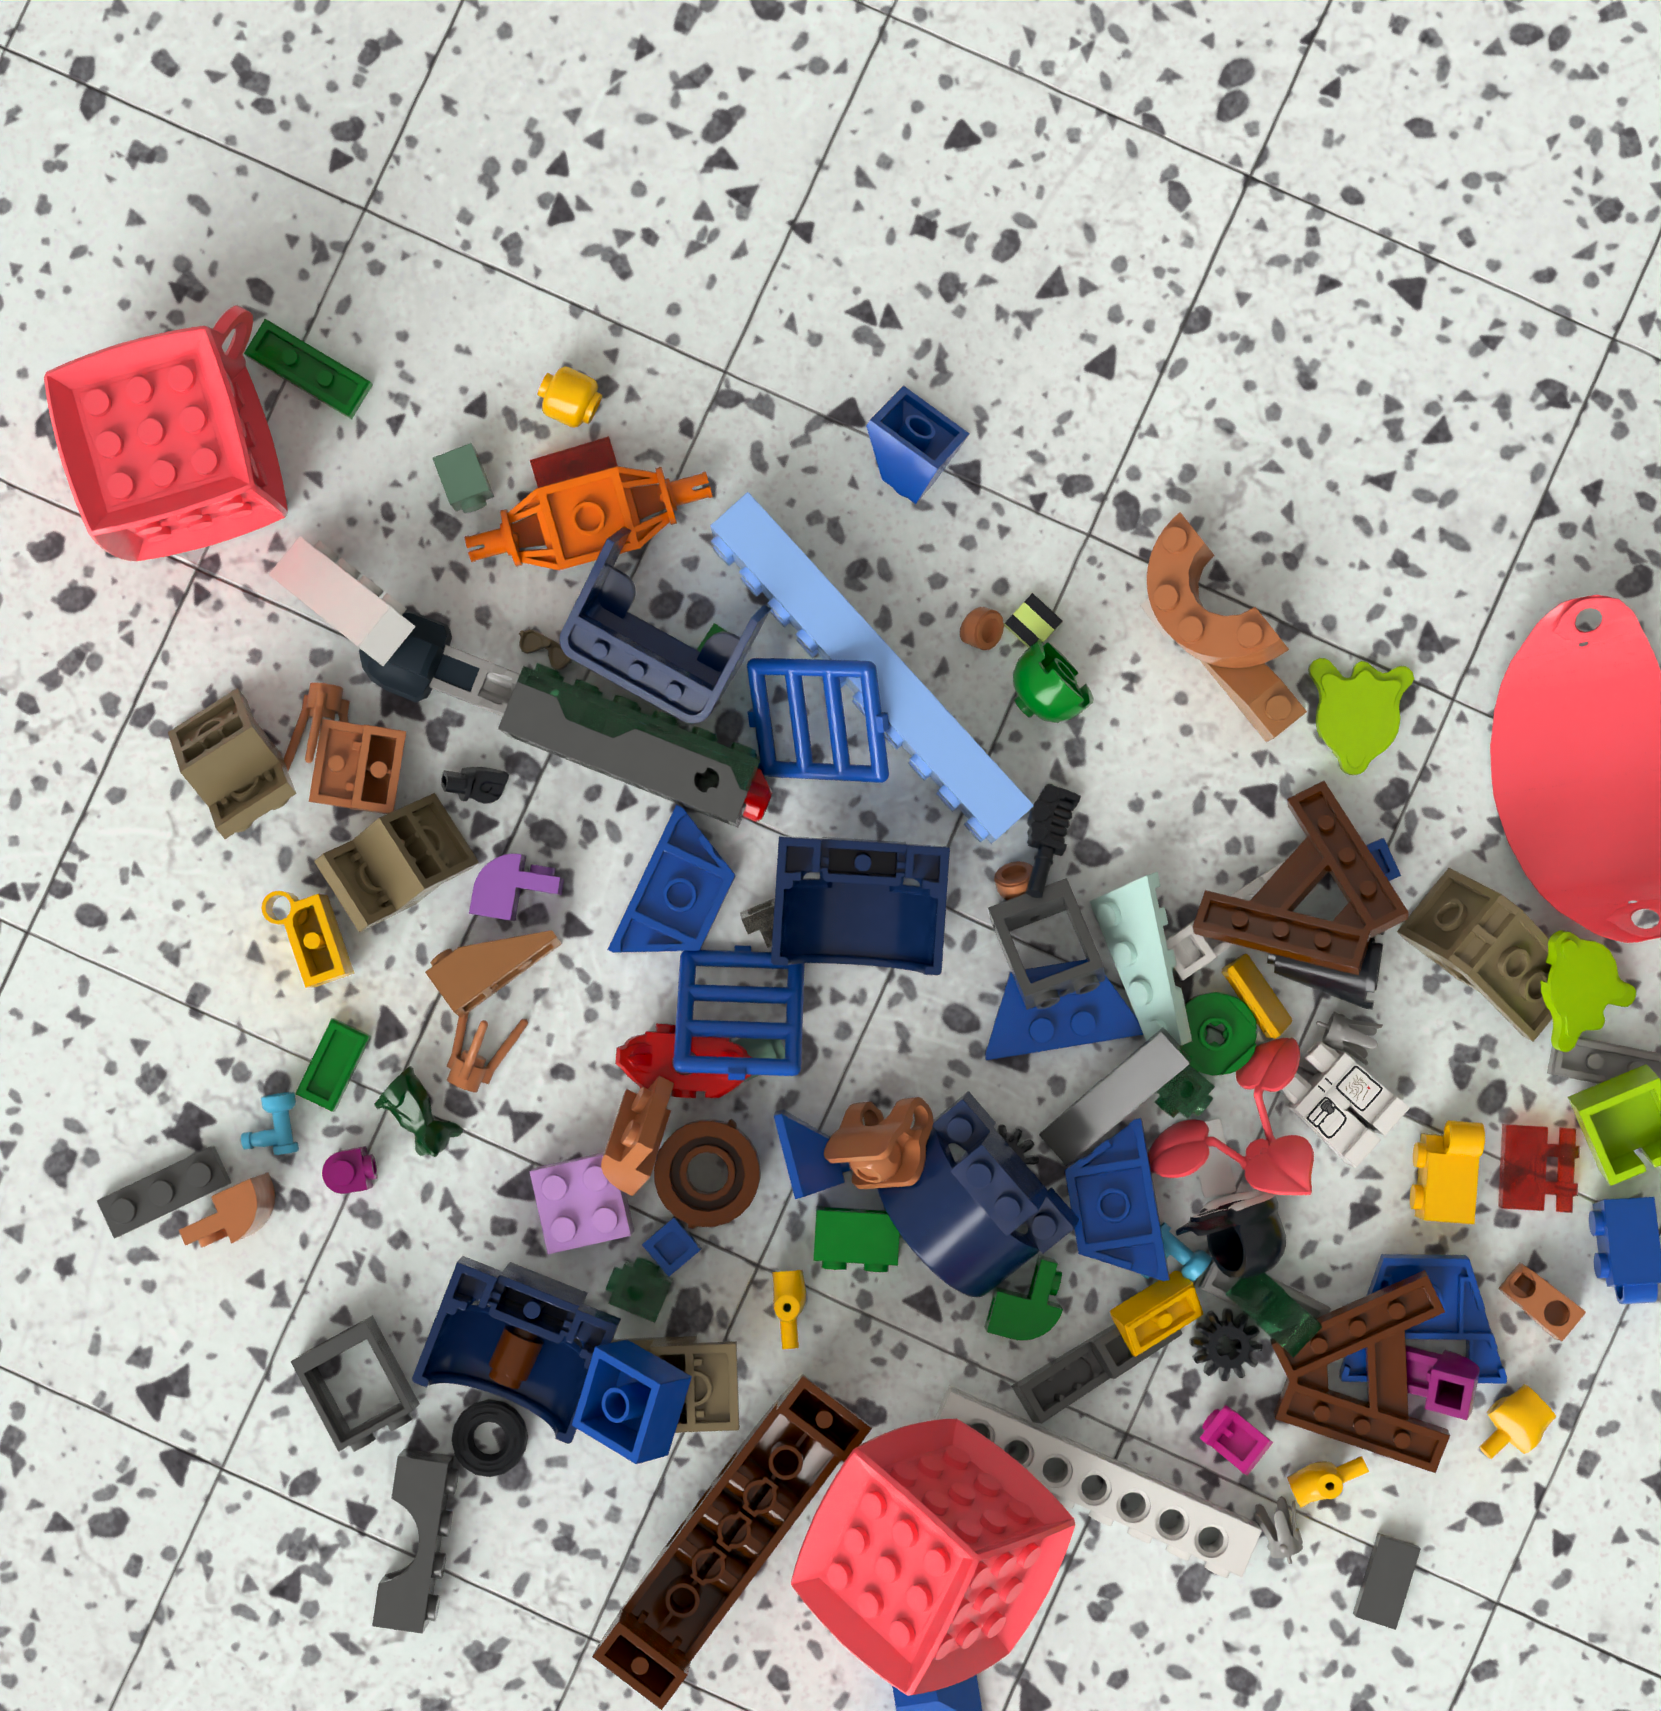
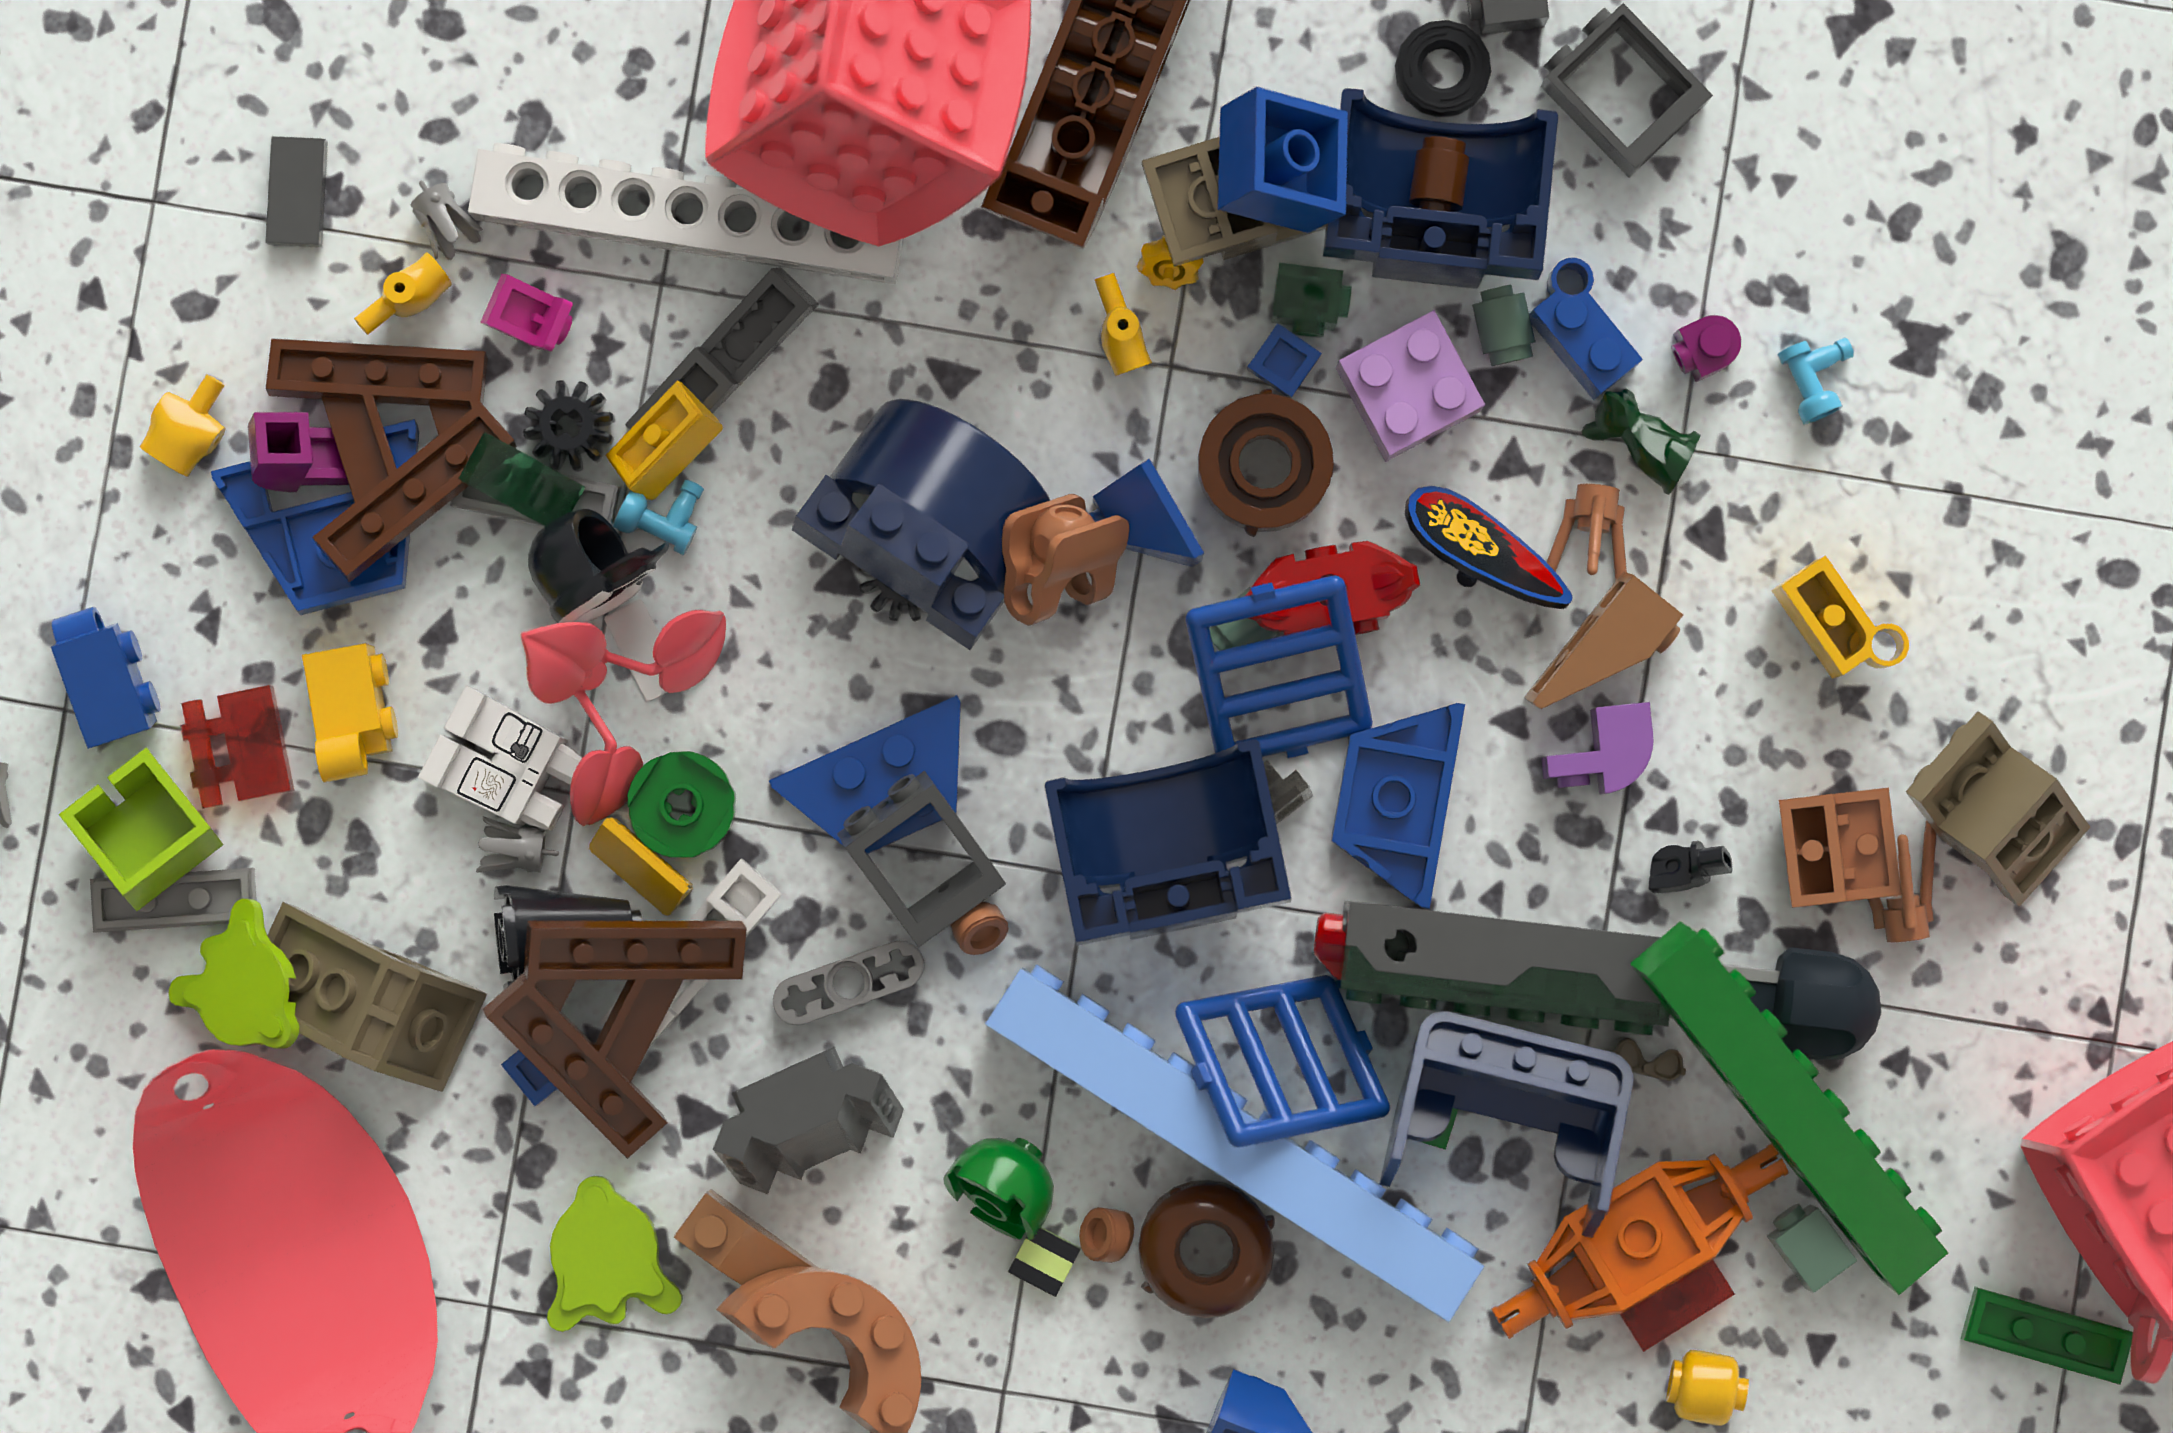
camera: 165 degrees right, 0 degrees up
(164, 1191) = (1928, 259): dark grey plate -> none
(239, 1213) = (1827, 259): nougat brick -> none
(333, 1065) = (1765, 470): green tile -> none
(342, 600) = (1917, 1048): white brick -> none
(396, 862) = (1757, 742): dark tan bracket -> none
(440, 1206) = (1583, 333): none -> blue hinge
(450, 583) = (1789, 1106): none -> green brick
(498, 1228) = (1504, 325): none -> sand green brick
(562, 1064) = (1482, 547): none -> shield
(637, 1136) = (1364, 483): nougat brick -> none
(747, 1343) = (1159, 269): none -> yellow piece
(855, 1237) = (1060, 432): green brick -> none
(918, 564) = (1201, 1293): none -> reddish brown piece
(1030, 1315) = (823, 394): green brick -> none
(1047, 831) = (958, 1003): black piece -> none
(1092, 858) = (815, 1008): none -> light grey beam
(1115, 1096) = (785, 693): slope -> none
(1118, 1205) = (747, 560): blue wing -> none
(1139, 949) = (808, 888): light aqua wing -> none
(1185, 1094) = (707, 725): clear green brick -> none
(1186, 774) = (804, 1119): none -> dark grey slope
(1542, 1302) = (192, 582): nougat leg -> none

